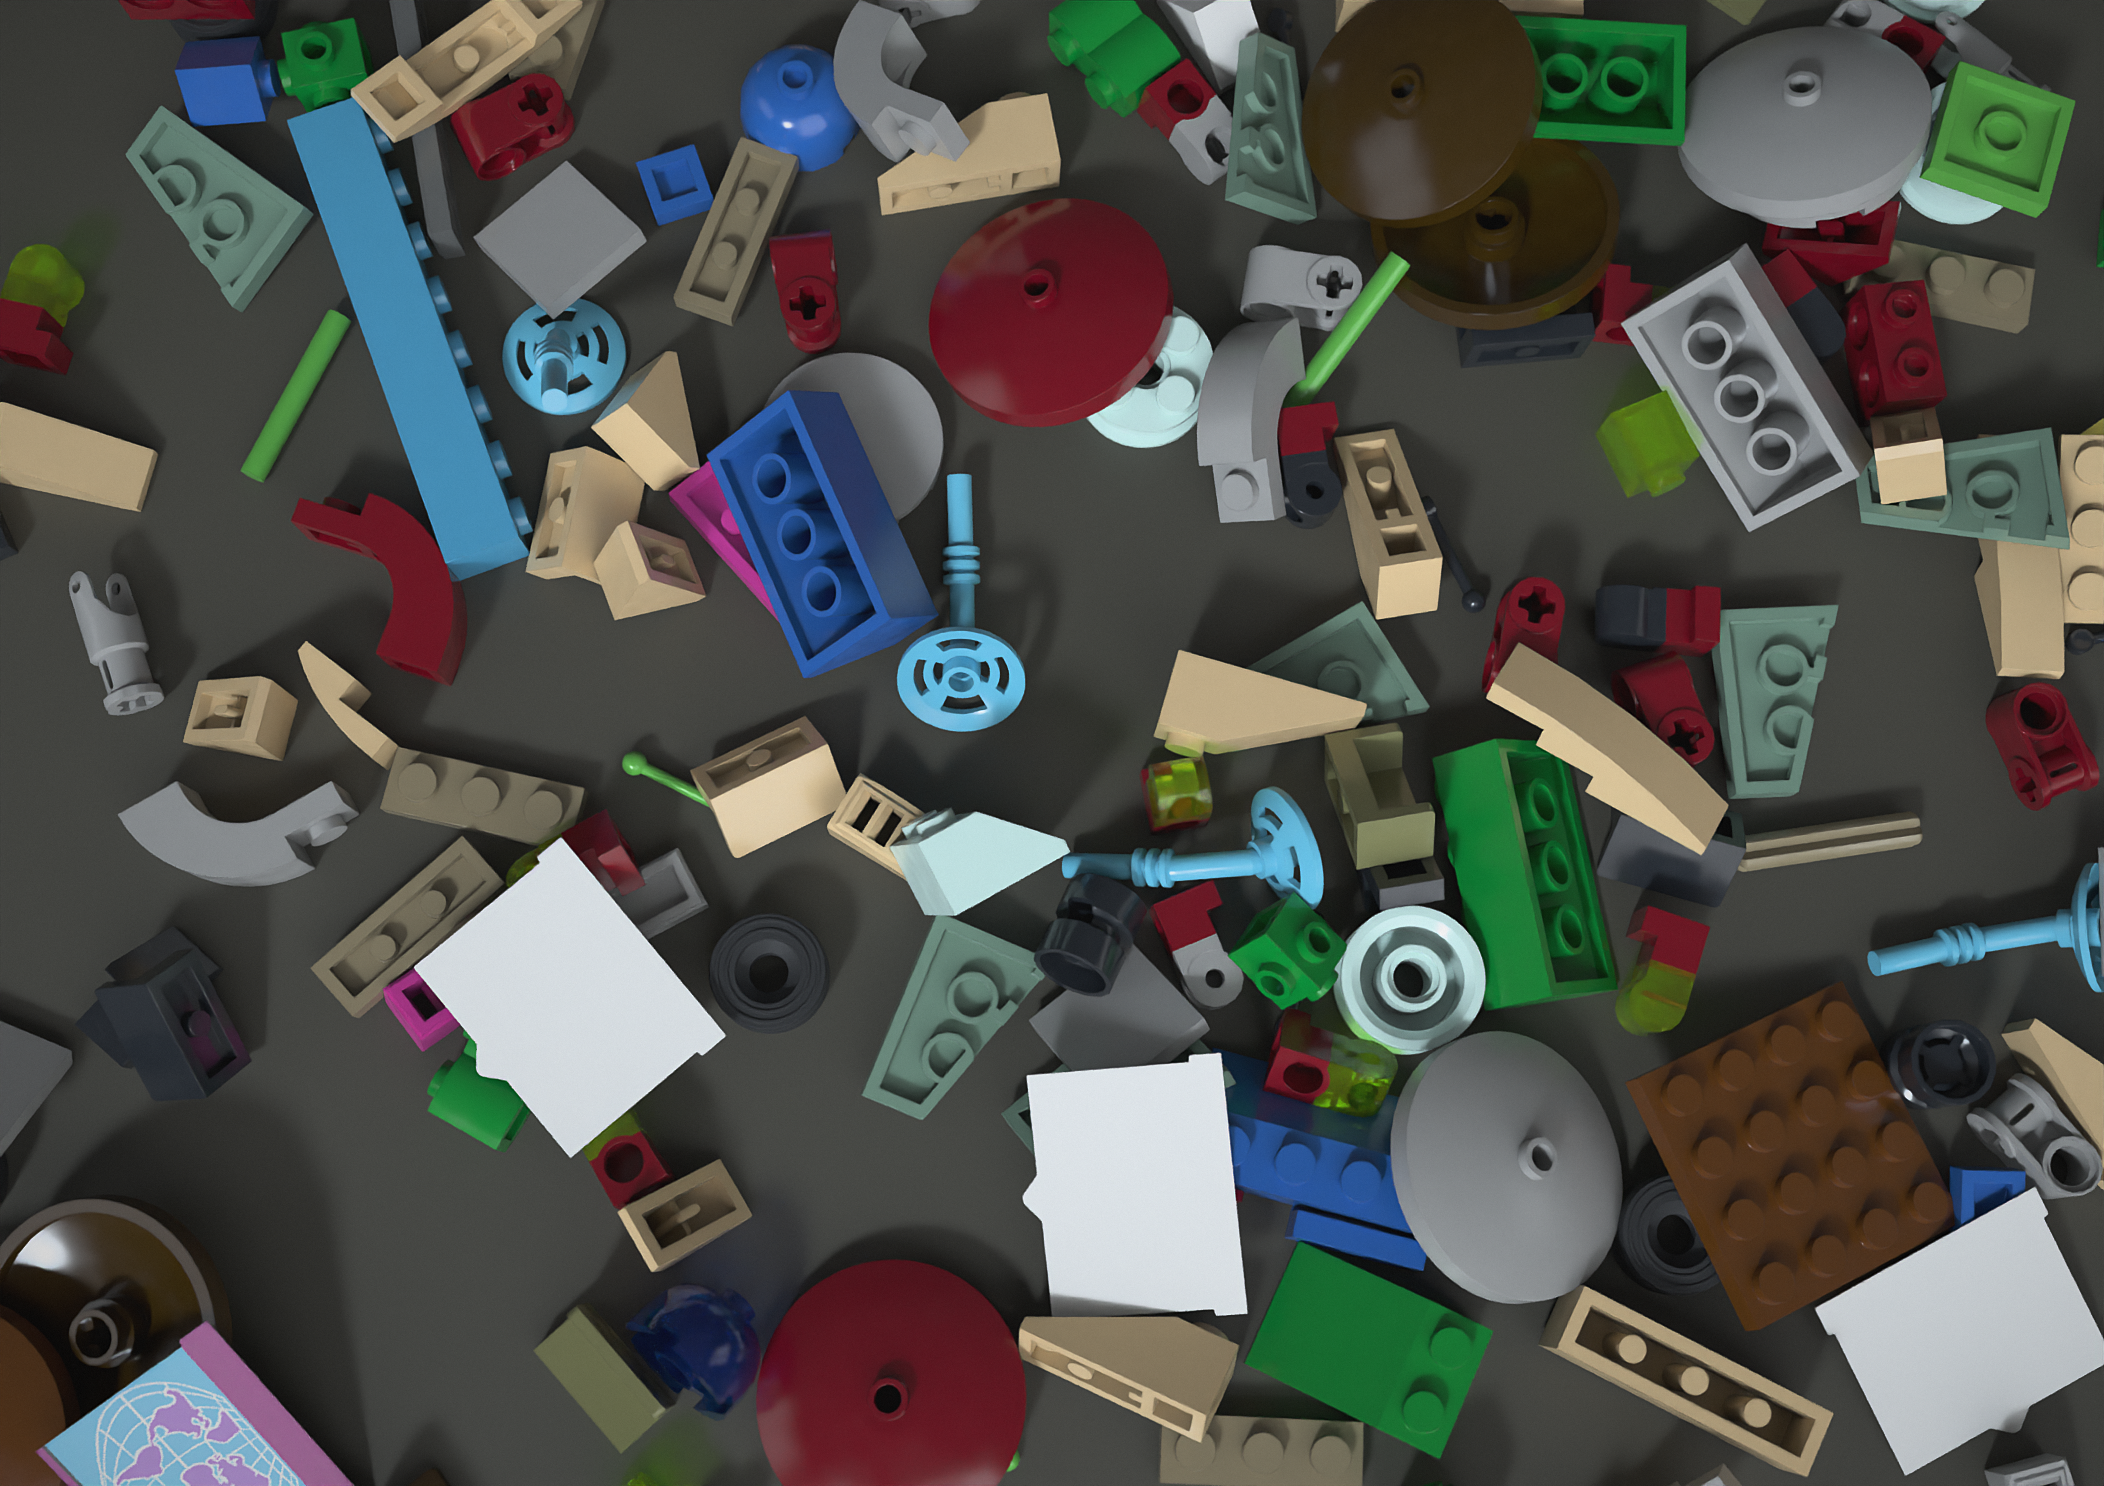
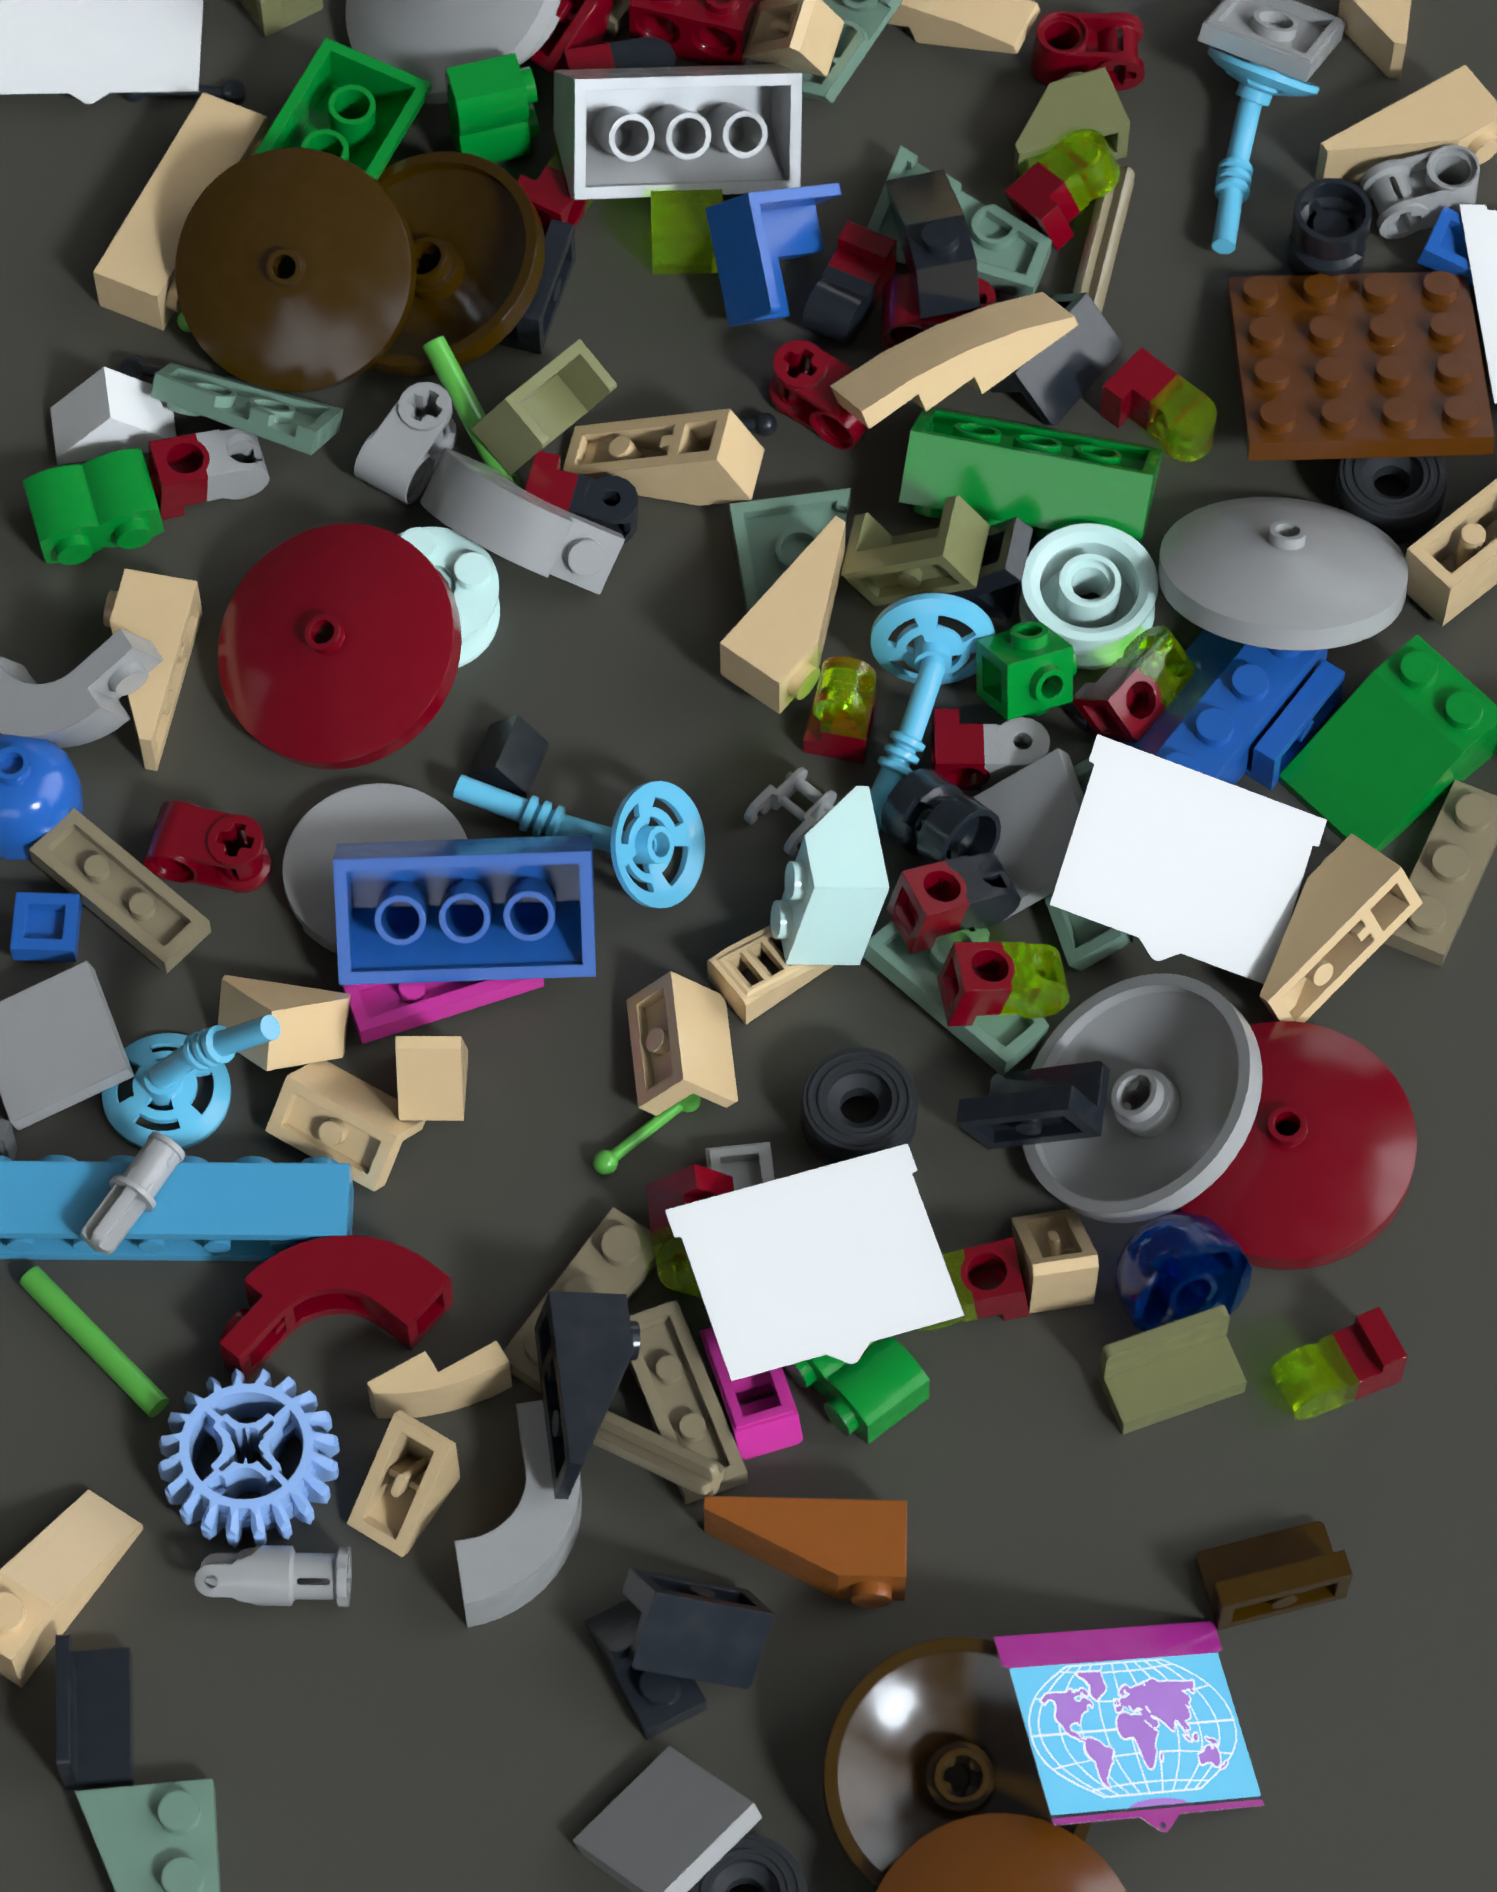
camera: 60 degrees left, 15 degrees down
(232, 528) = (281, 1418): none -> light blue gear
(308, 1120) = (831, 1544): none -> dark orange slope
(340, 907) = (659, 1455): none -> dark tan axle
(378, 828) = (581, 1361): none -> black slope
(405, 360) = (132, 1193): none -> light grey axle
(828, 1145) = (1038, 1106): none -> black panel
(858, 1246) = (1174, 1103): none -> light grey dish
(936, 1061) = (1001, 981): none -> leg
(1010, 978) = (951, 898): none -> leg
(1015, 512) = (510, 756): none -> black slope
(1083, 814) = (779, 797): none -> light grey piece
(1382, 388) = (544, 407): none -> olive panel
(1655, 504) = (752, 237): none -> blue panel
(1685, 208) = (492, 108): none -> green brick
(1730, 676) = (935, 243): none -> black slope
(1867, 779) = (1064, 184): none -> leg
(1940, 761) = (1072, 105): none -> olive slope

